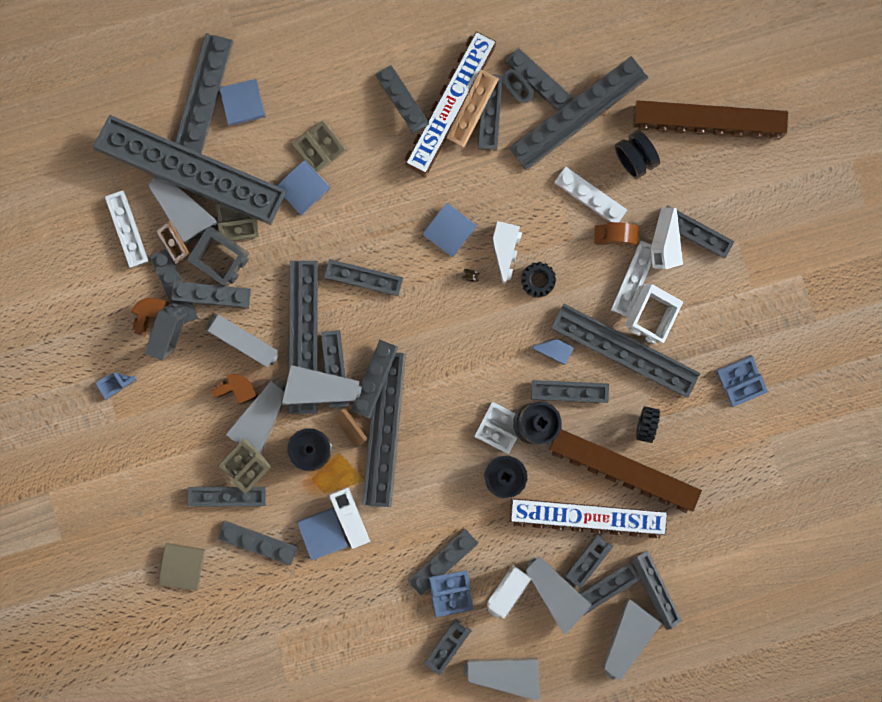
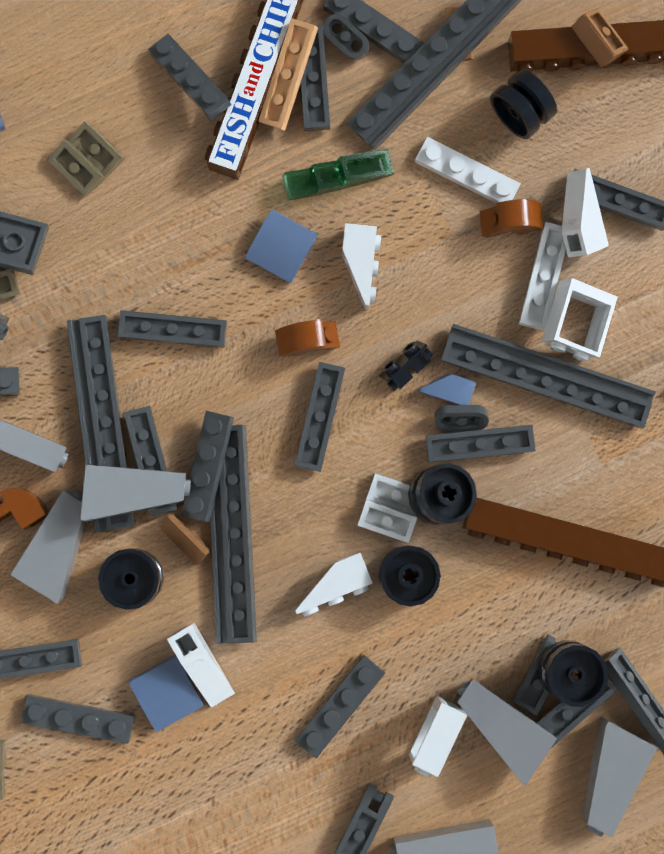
camera: 10 degrees left, 0 degrees up
(244, 465) = (42, 615): dark tan slope -> none
(303, 187) = (72, 217): sand blue slope -> none
(337, 475) = (175, 608): clear yellow wing -> none
(451, 593) = (357, 750): sand blue slope -> none
(457, 472) = (342, 578): none -> white slope
(458, 297) = (307, 337): none -> dark orange brick
(459, 355) = (319, 417): none -> dark grey plate
(471, 275) = (320, 304): dark brown bush -> none
(498, 184) = (338, 174): none -> clear green slope
(532, 322) = (396, 371): none -> black hinge
(538, 268) = (413, 280): black tyre -> none
(559, 371) = (461, 418): none -> dark grey plate
(589, 517) = (532, 613): brick -> none
(620, 567) = (589, 672): none -> black wheel
(648, 424) = (595, 473): black tyre -> none
(699, 114) = (599, 37): none -> medium nougat slope

